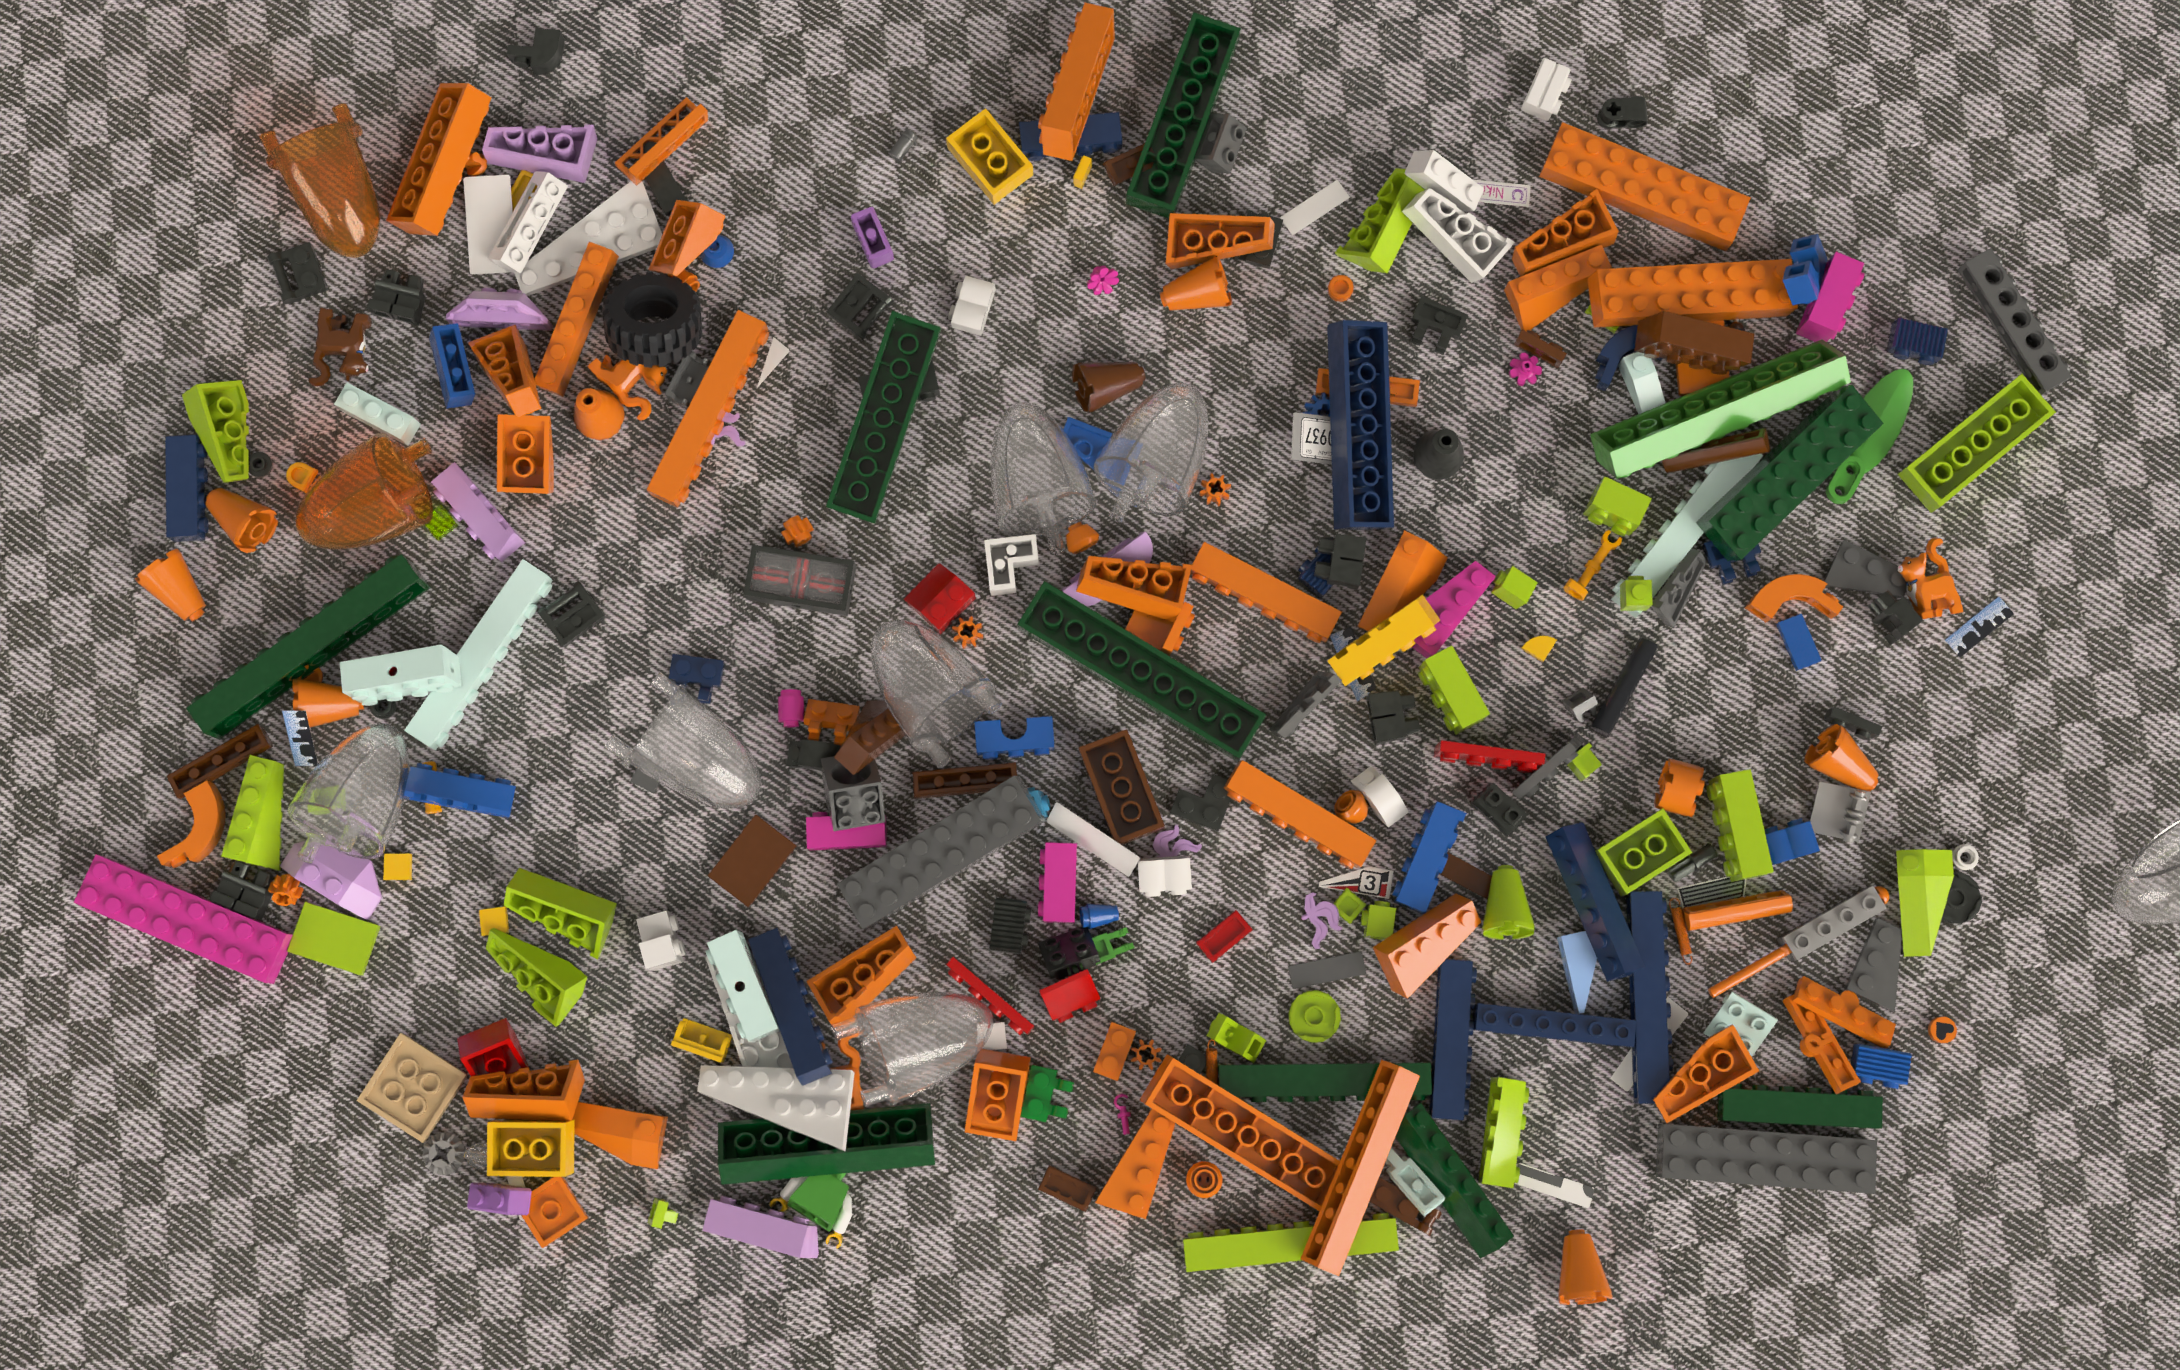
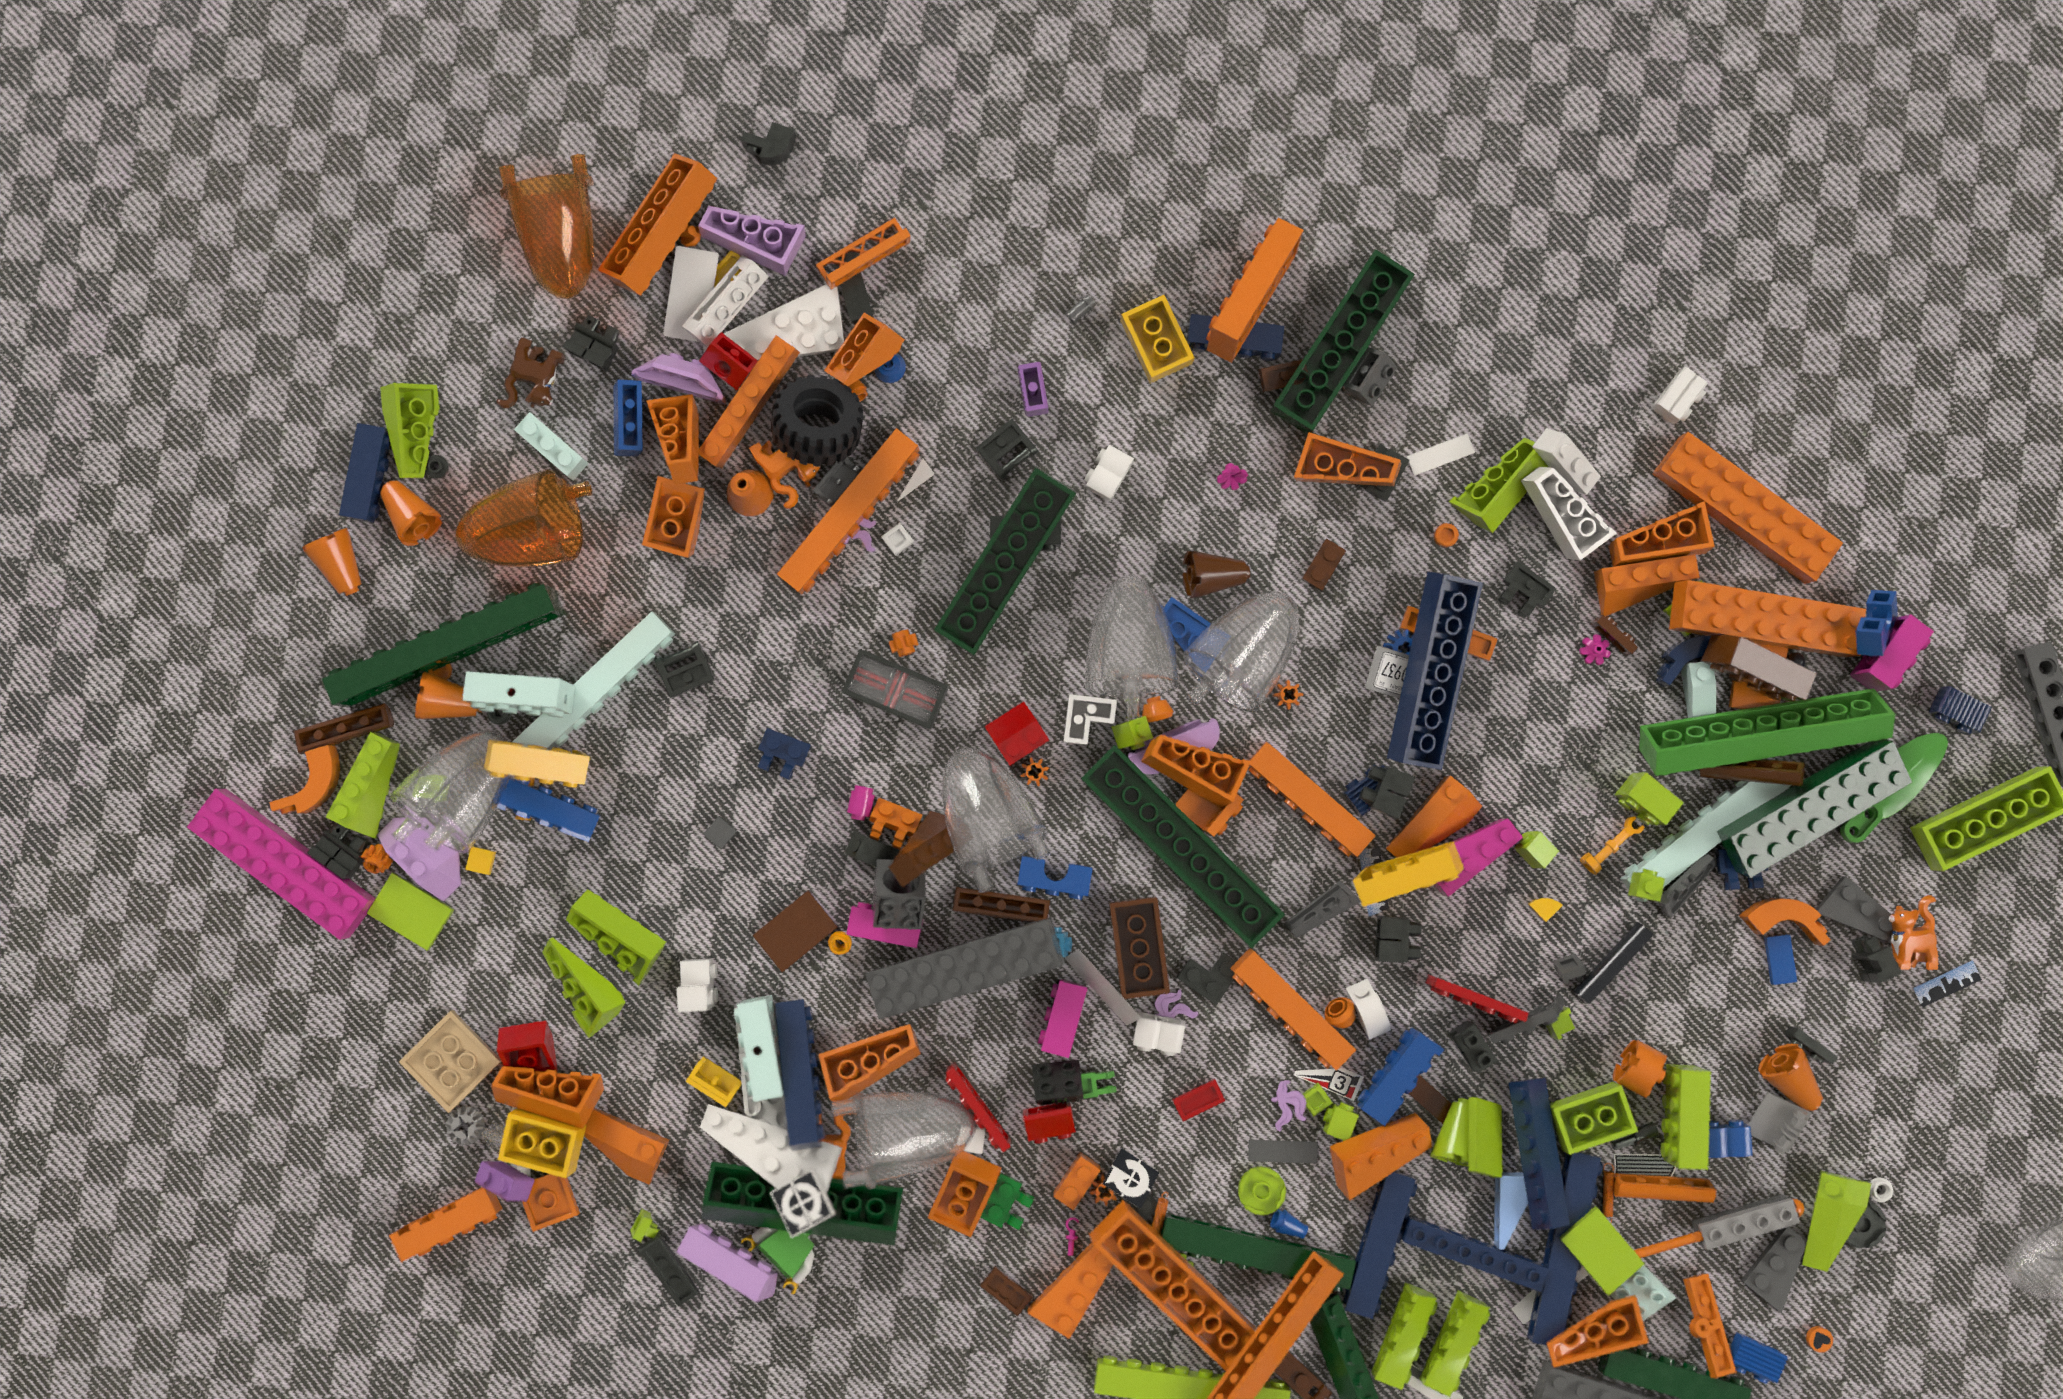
camera: 15 degrees right, 5 degrees up
(300, 738) = (418, 726): sticker -> none
(301, 476) = (471, 485): tile -> none
(305, 269) = (516, 298): pearl dark grey plate -> none
(435, 741) = (536, 763): none -> yellow wedge
(441, 523) = (587, 558): clear neon green tile -> none
(446, 1260) = (445, 1223): none -> orange wedge
(478, 512) = (621, 557): lavender wedge -> none
(493, 918) = (554, 928): yellow tile -> none
(545, 281) = (728, 361): none -> red brick
(692, 752) = (764, 826): clear windscreen -> none
(698, 1254) = (668, 1270): none -> pearl dark grey tile
(766, 426) = (897, 539): none -> white tile
(799, 867) = (837, 948): none -> light orange plate
(825, 1135) = (803, 1203): none -> tile
(1008, 926) = (1010, 1045): pearl dark grey brick -> none
(1061, 566) = (1132, 733): none -> lime brick
(1082, 172) = (1237, 372): yellow tile -> none
(1097, 915) = (1090, 1054): blue cone -> none
(1171, 1035) = (1130, 1178): none -> sticker
(1198, 288) = (1317, 506): orange cone -> none
(1203, 1188) = (1126, 1320): orange cone -> none
(1220, 348) = (1323, 564): none -> reddish brown plate
(1236, 1037) = (1187, 1195): lime brick -> none
(1350, 1044) = (1287, 1224): none -> blue cone
(1413, 1183) = (1314, 1364): light aqua hinge -> none
(1438, 454) = (1497, 709): pearl dark grey cone -> none
(1453, 690) = (1458, 932): lime brick -> none
(1504, 193) = (1617, 482): white sticker -> none
(1534, 898) = (1485, 1137): none -> lime tile
(1557, 1126) = (1454, 1344): none -> lime wedge
(1623, 113) = (1748, 434): pearl dark grey piece -> none
(1686, 987) = (1601, 1250): none -> lime tile
(1844, 1011) = (1737, 1303): orange hinge -> none

